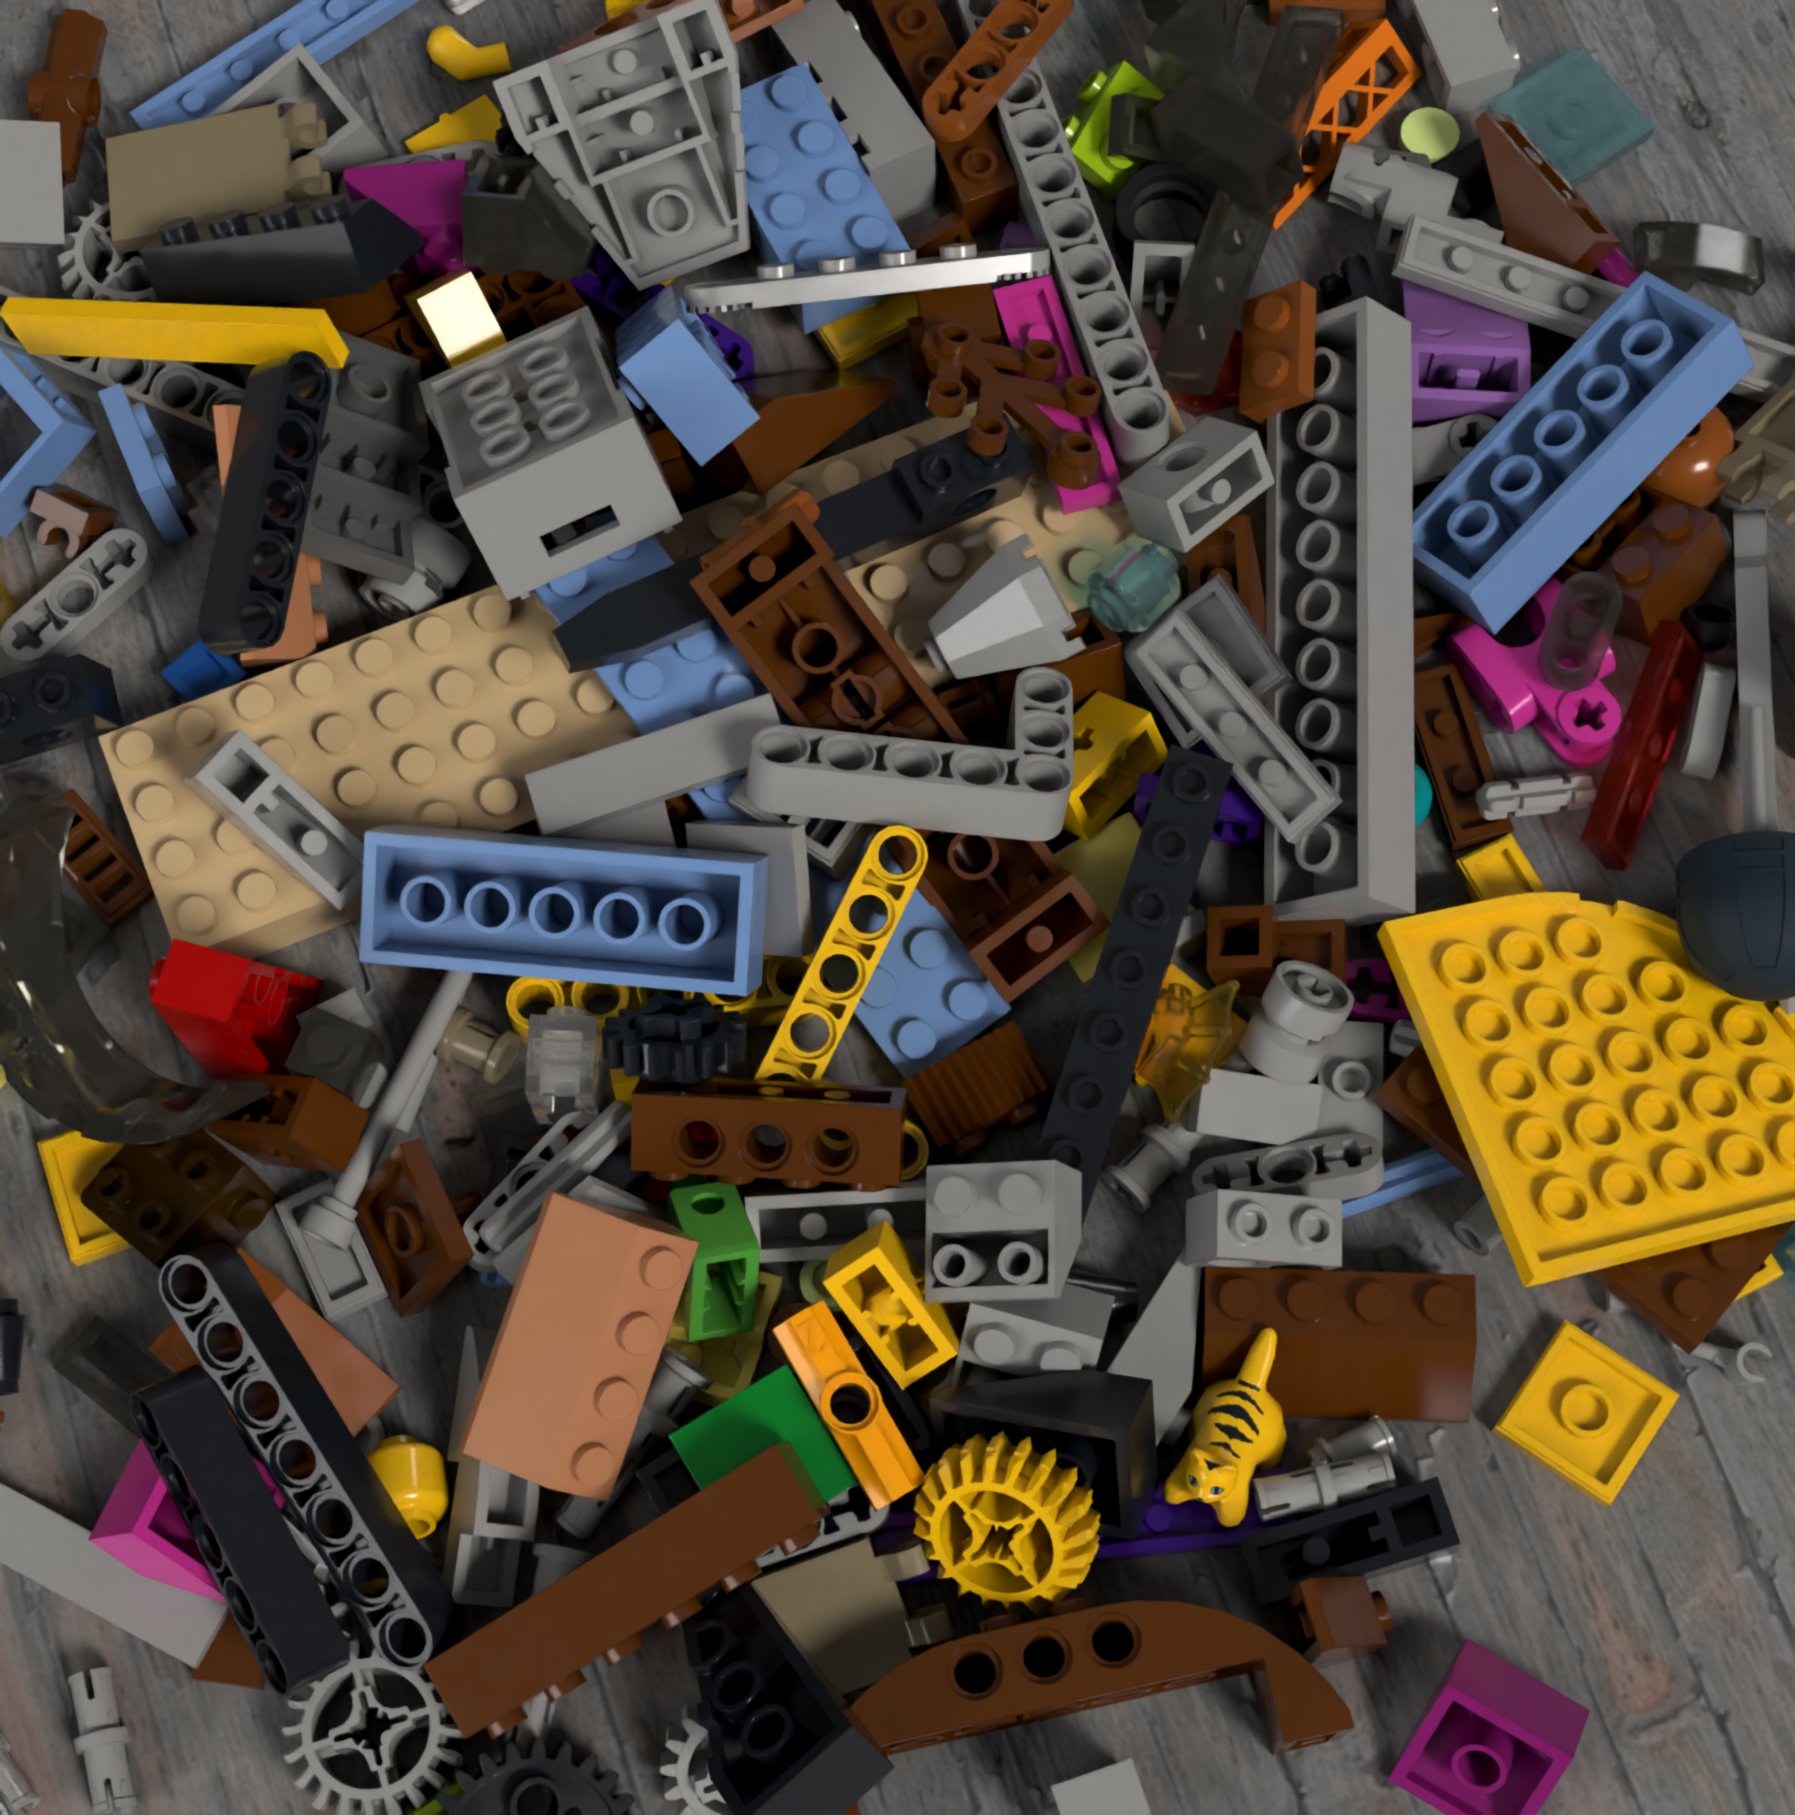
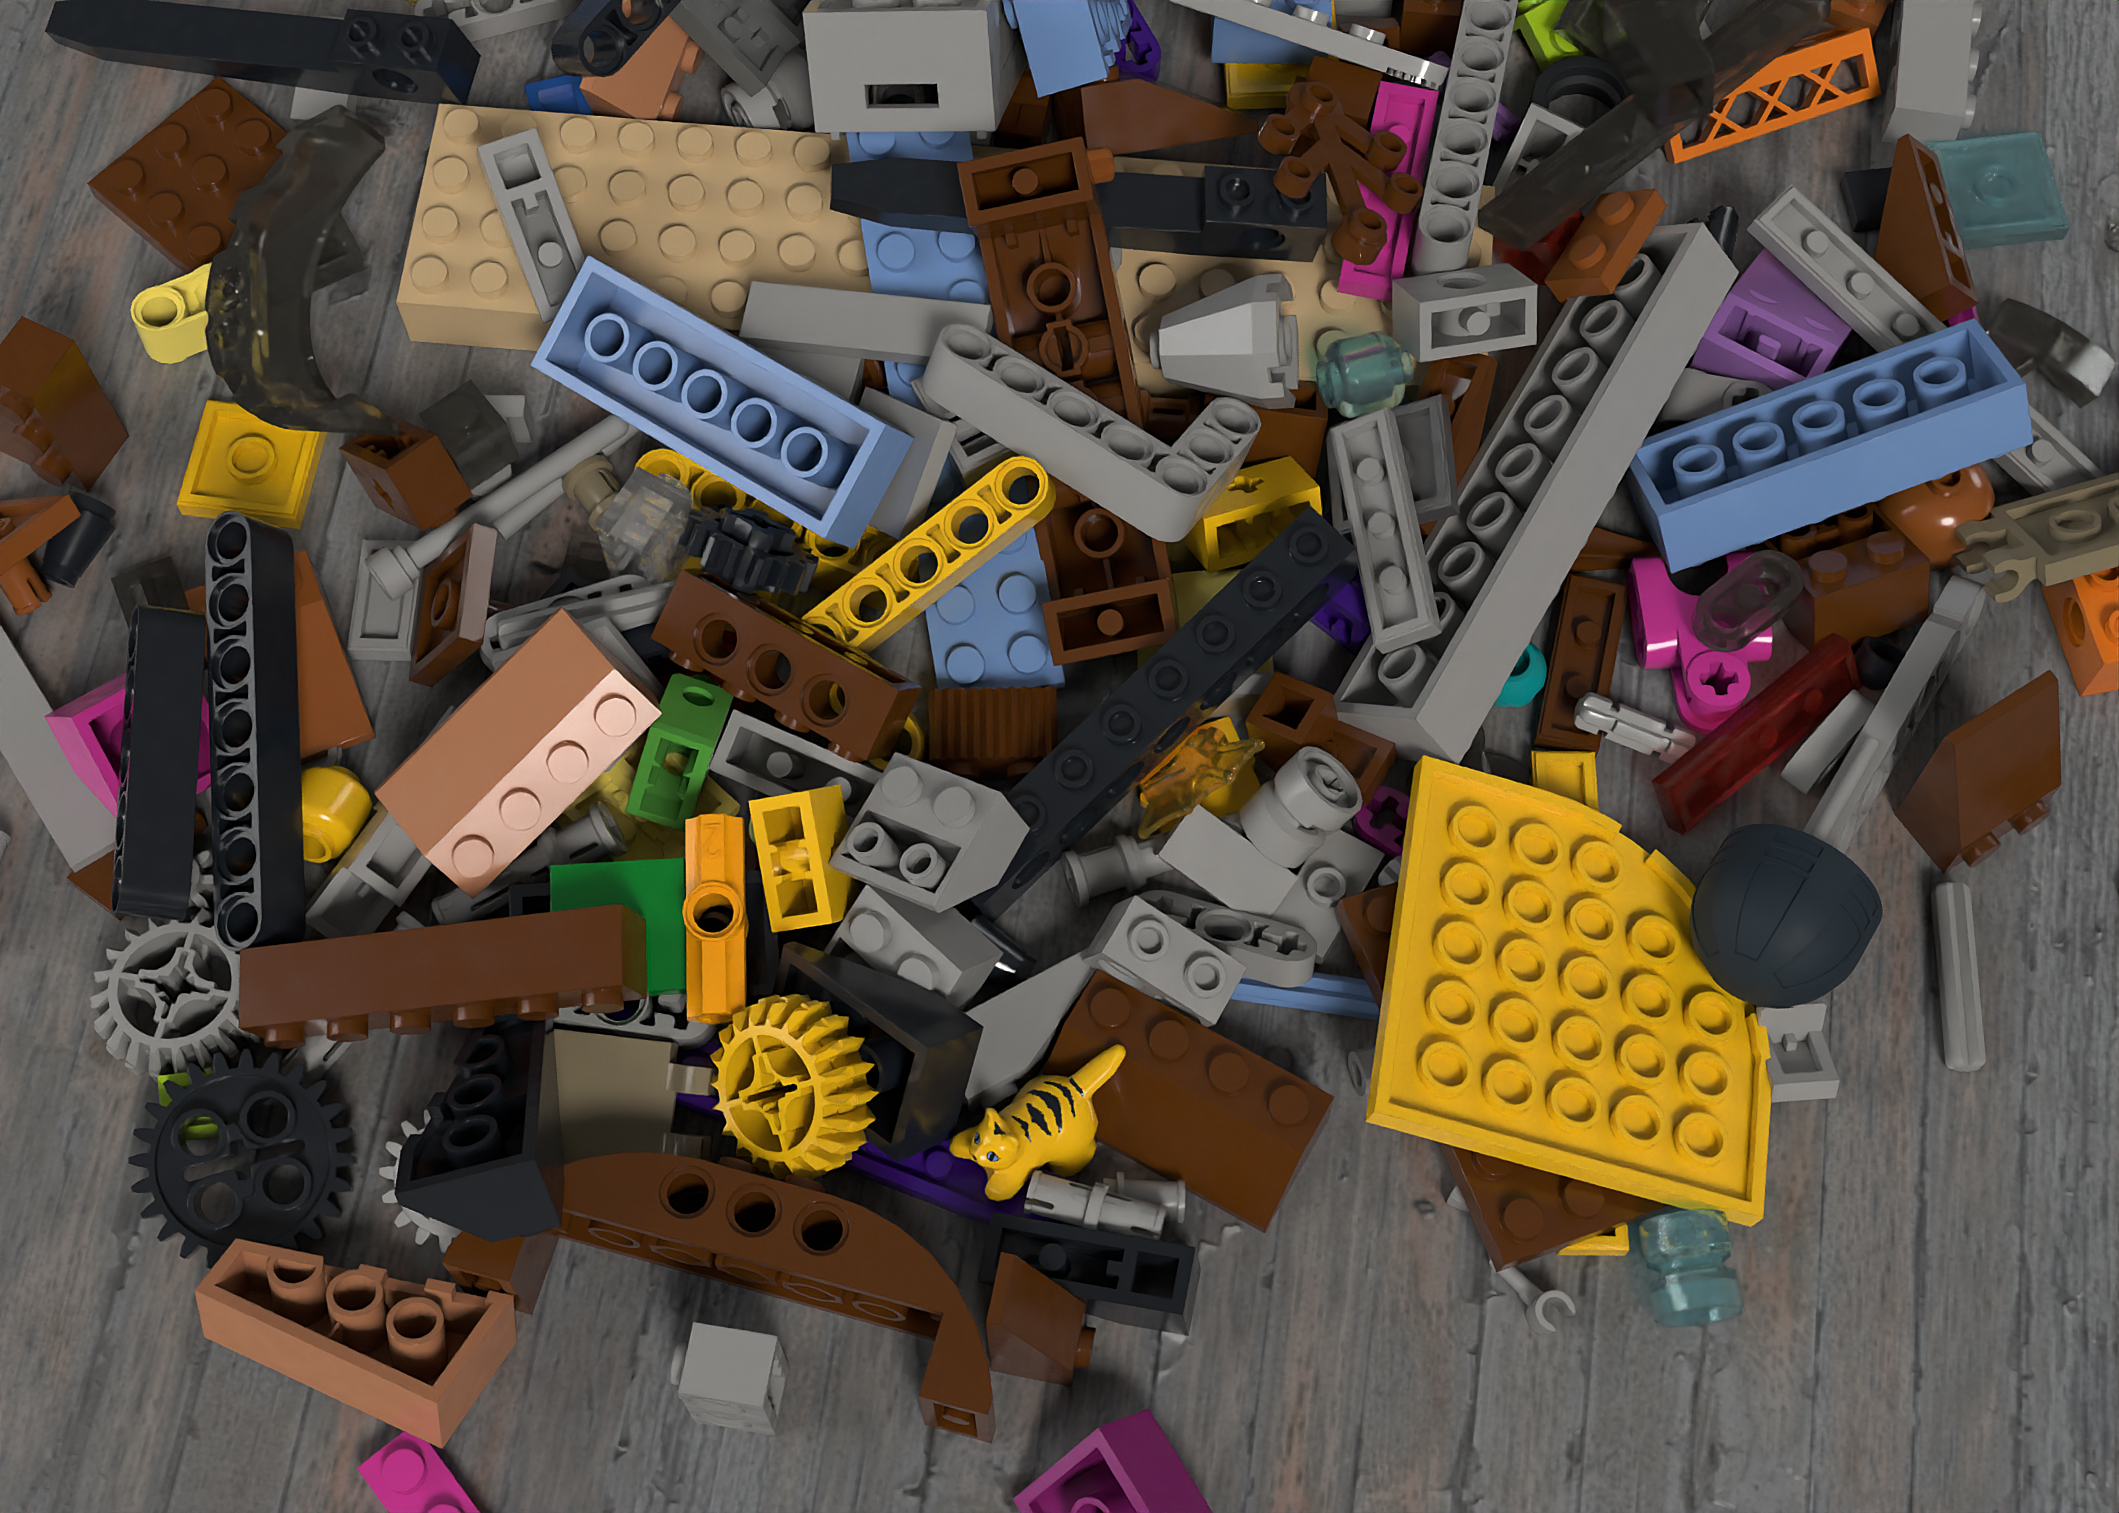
camera: 25 degrees right, 5 degrees down
(132, 896) = (387, 172): reddish brown slope -> none
(178, 1197) = (295, 485): dark brown bracket -> none
(231, 1008) = (401, 342): red wedge -> none
(1393, 187) = (1784, 155): light grey plate -> none
(1429, 133) = (1856, 146): yellowish green tile -> none
(1585, 1413) = (1376, 1279): yellow tile -> none

